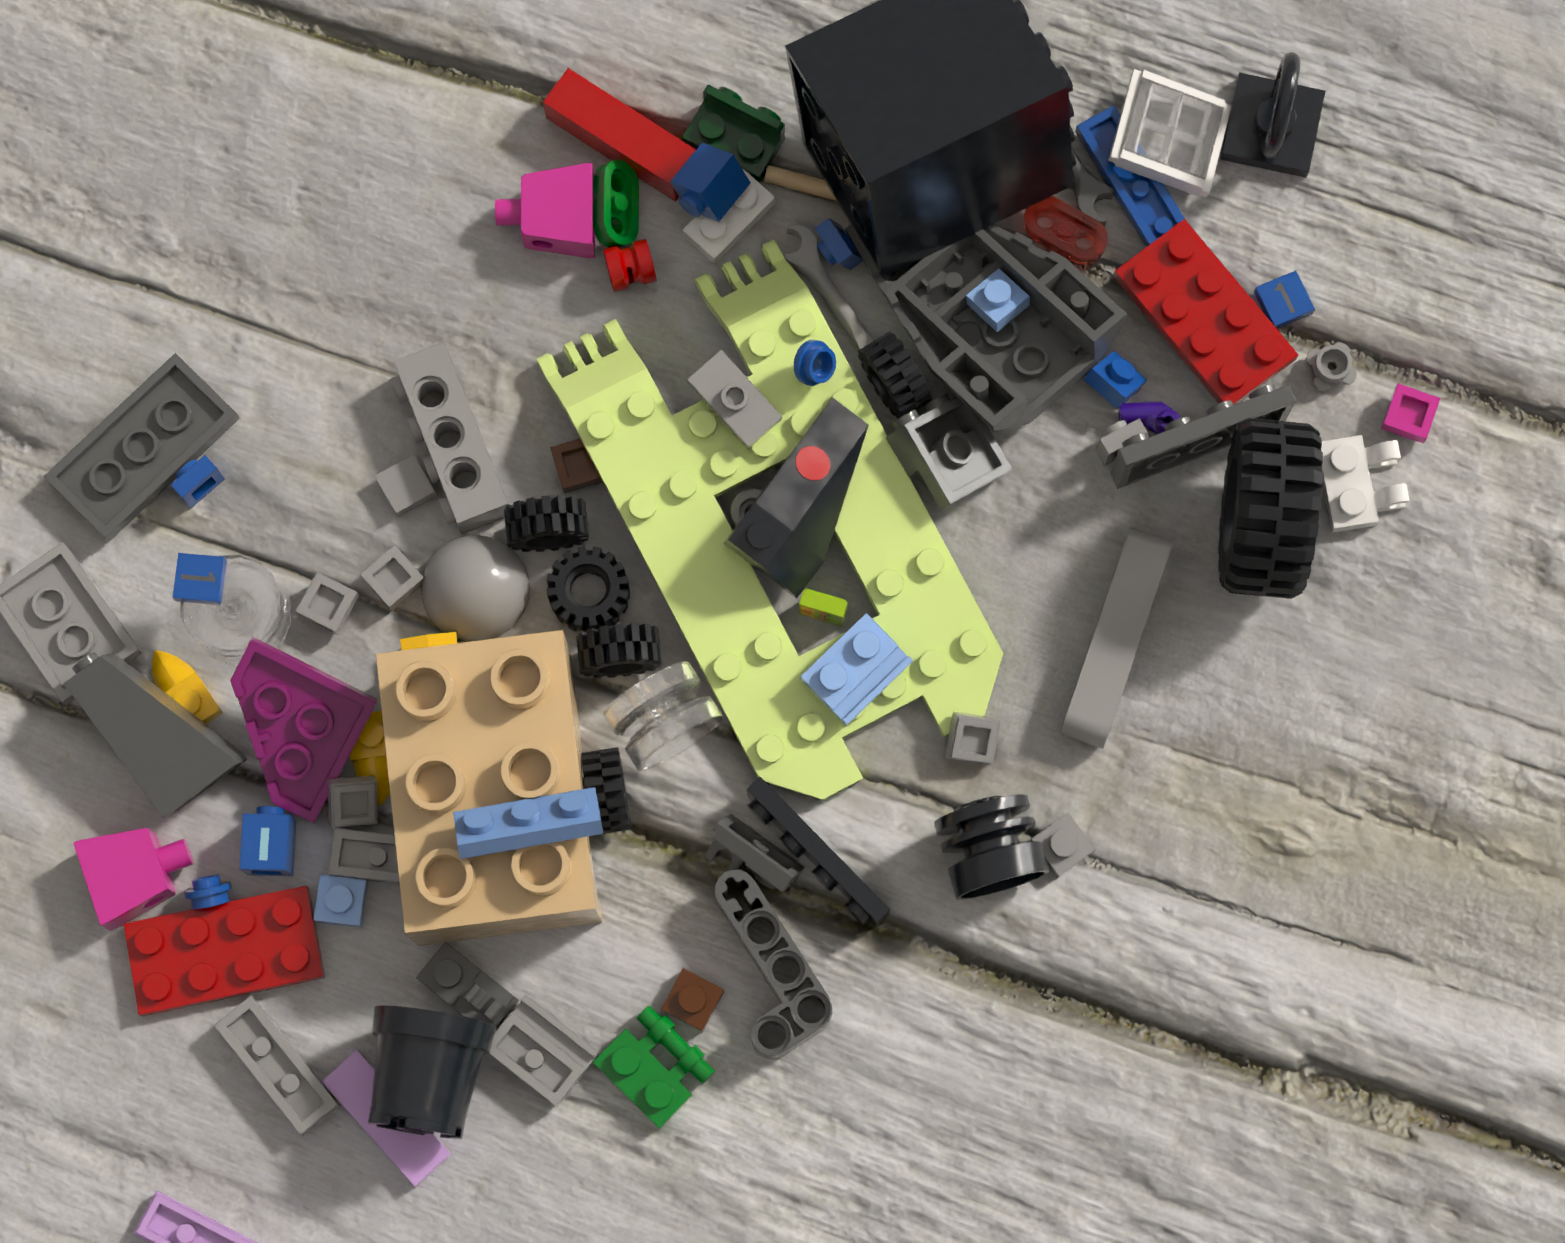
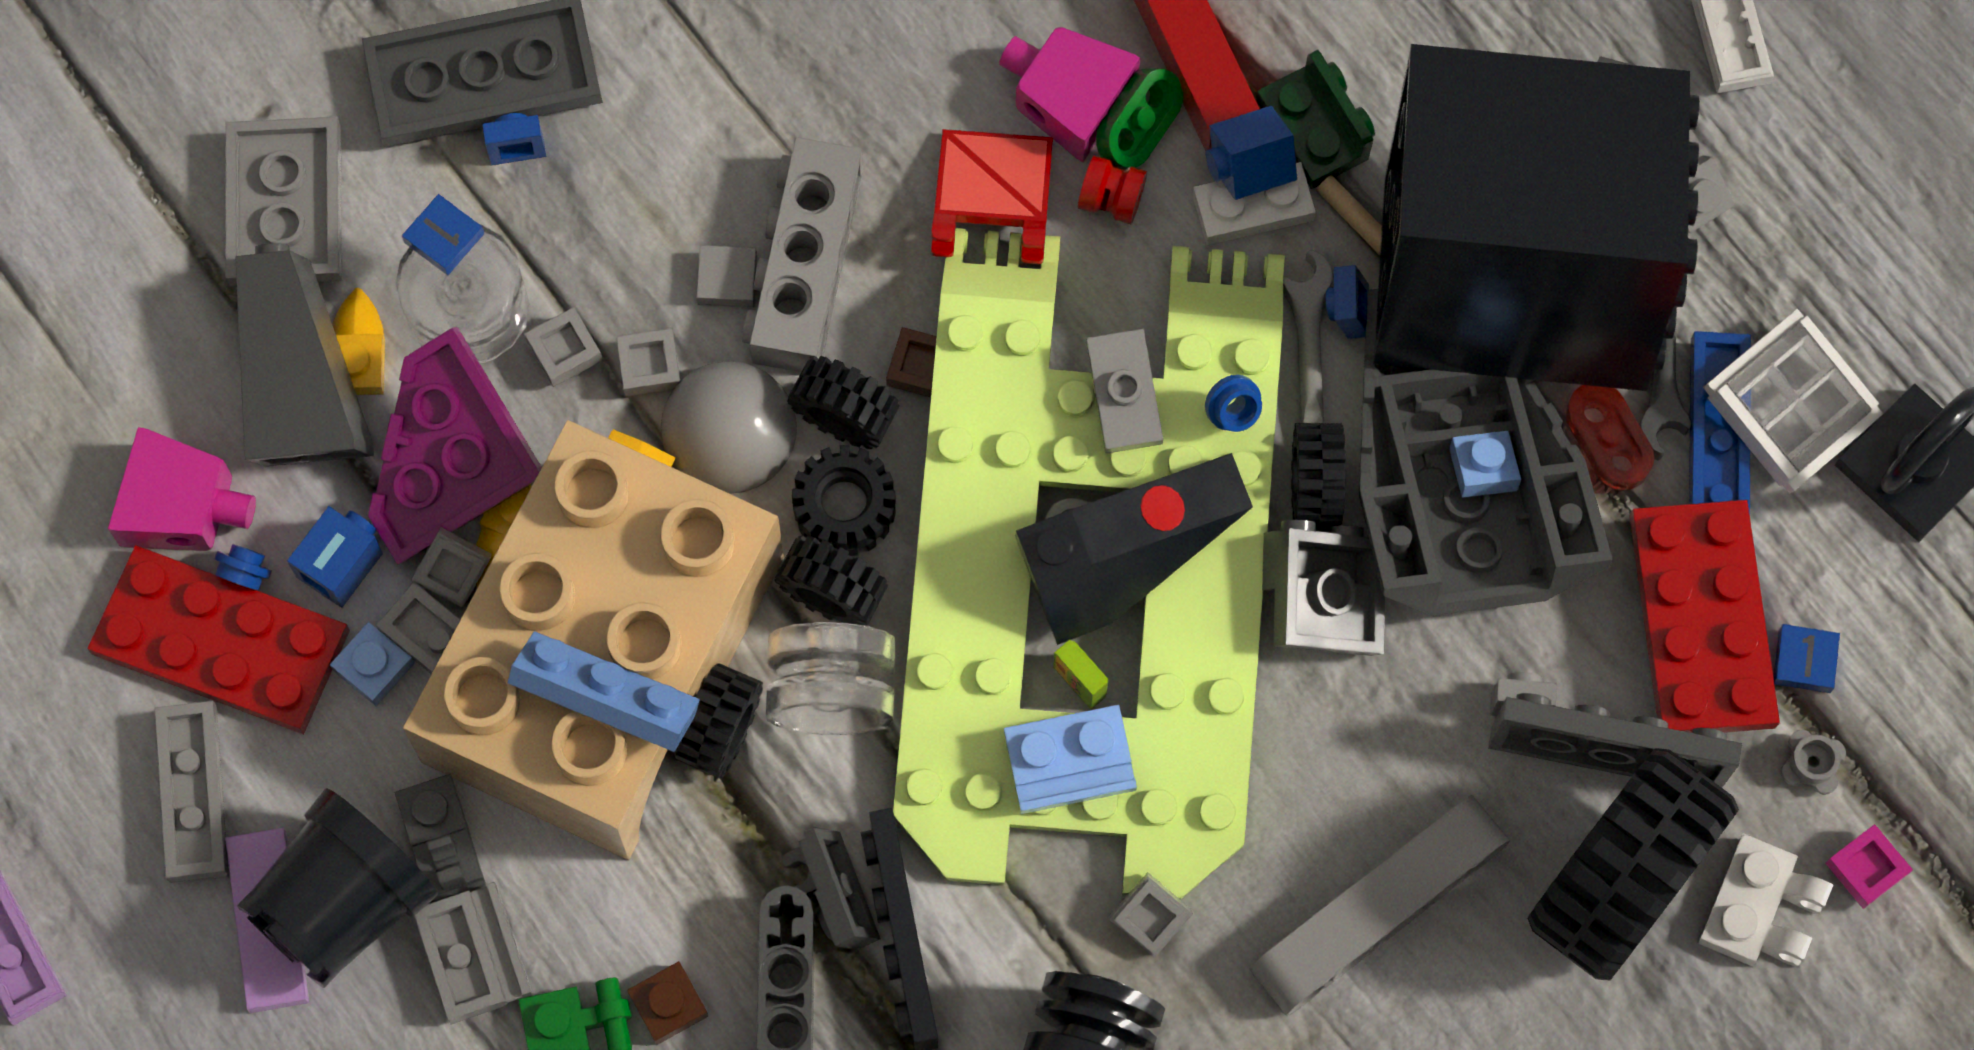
camera: 30 degrees right, 5 degrees down
(545, 310) = (992, 183): none -> flag
(1115, 379) = (1560, 628): blue plate -> none
(1152, 415) = (1571, 686): dark purple arm -> none

